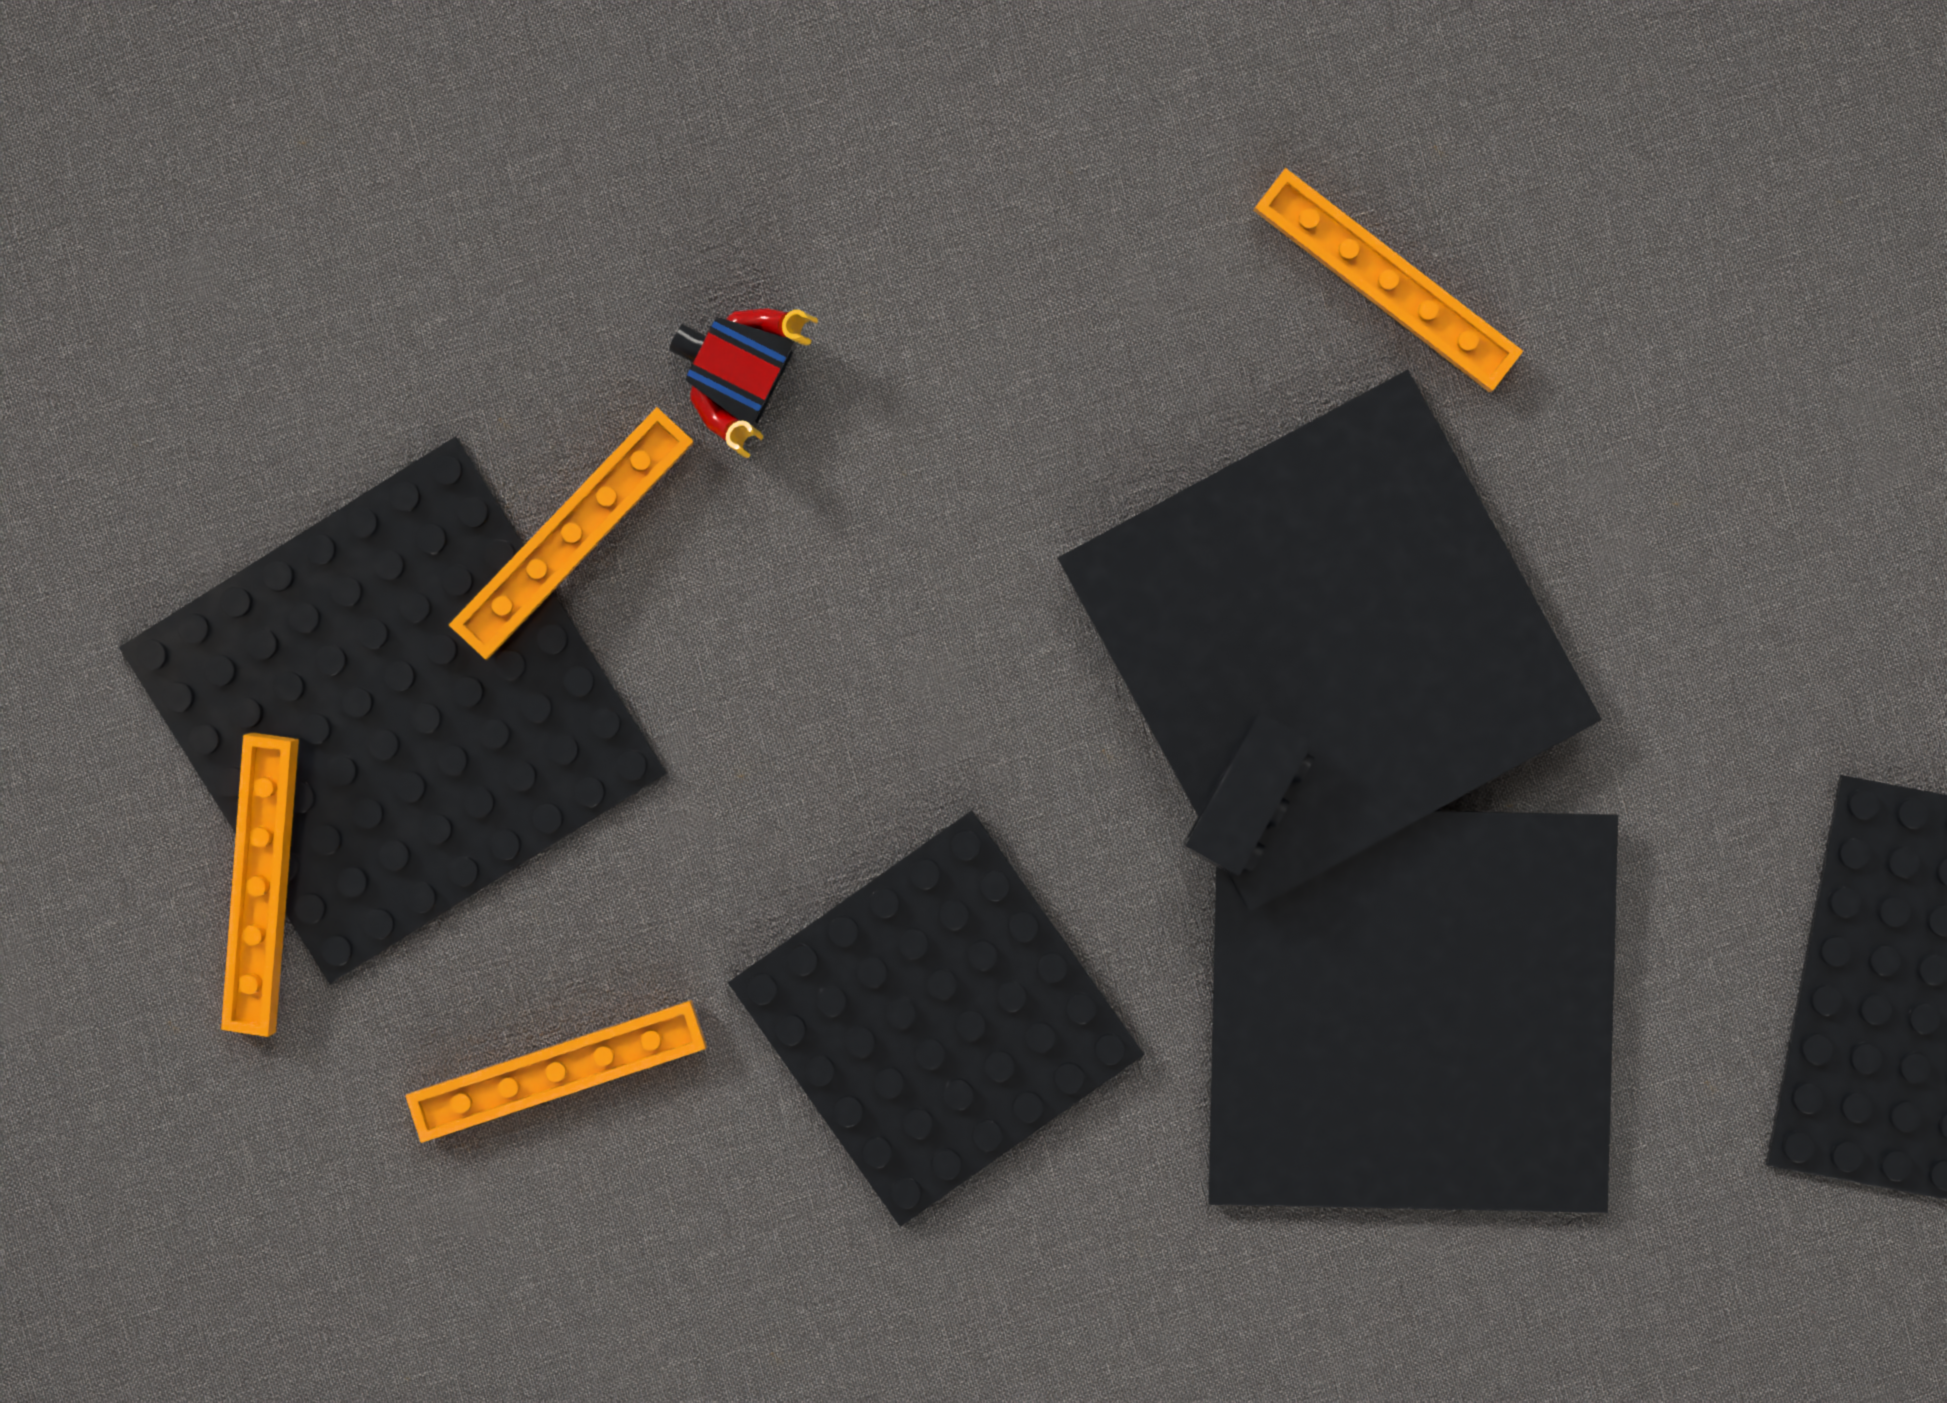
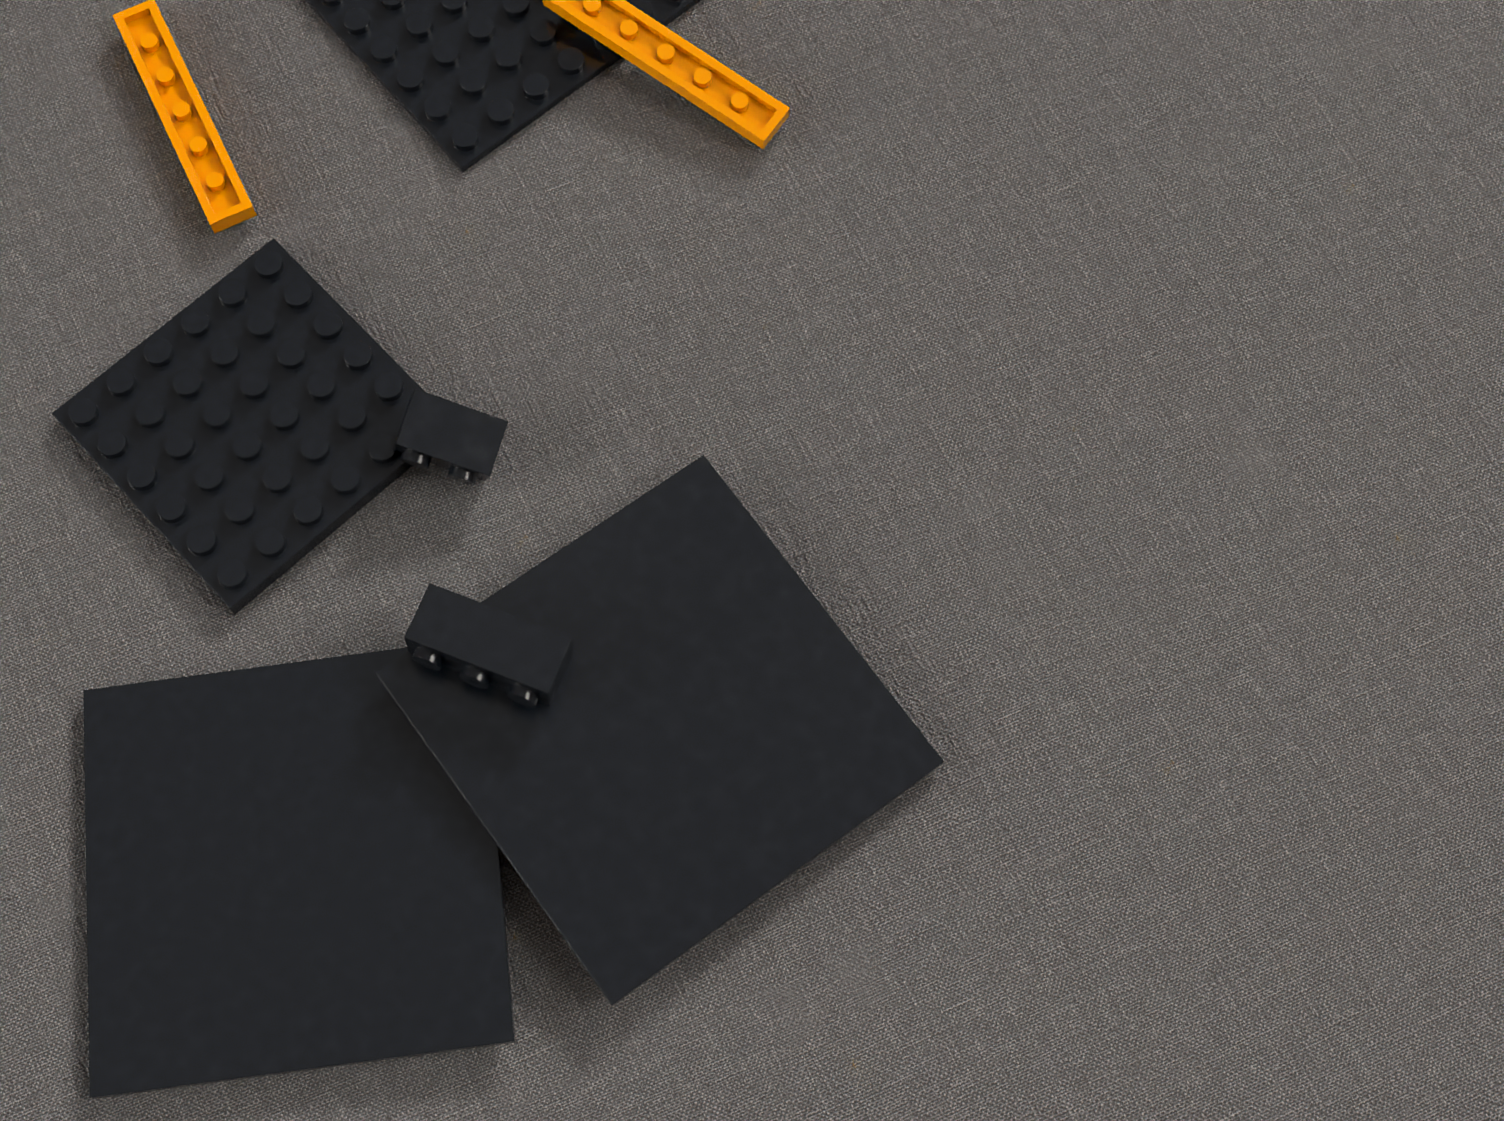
camera: 80 degrees right, 20 degrees down
(739, 368) = (833, 168): torso -> none
(1001, 815) = (449, 437): none -> black brick
(1388, 280) = (1027, 731): light orange plate -> none

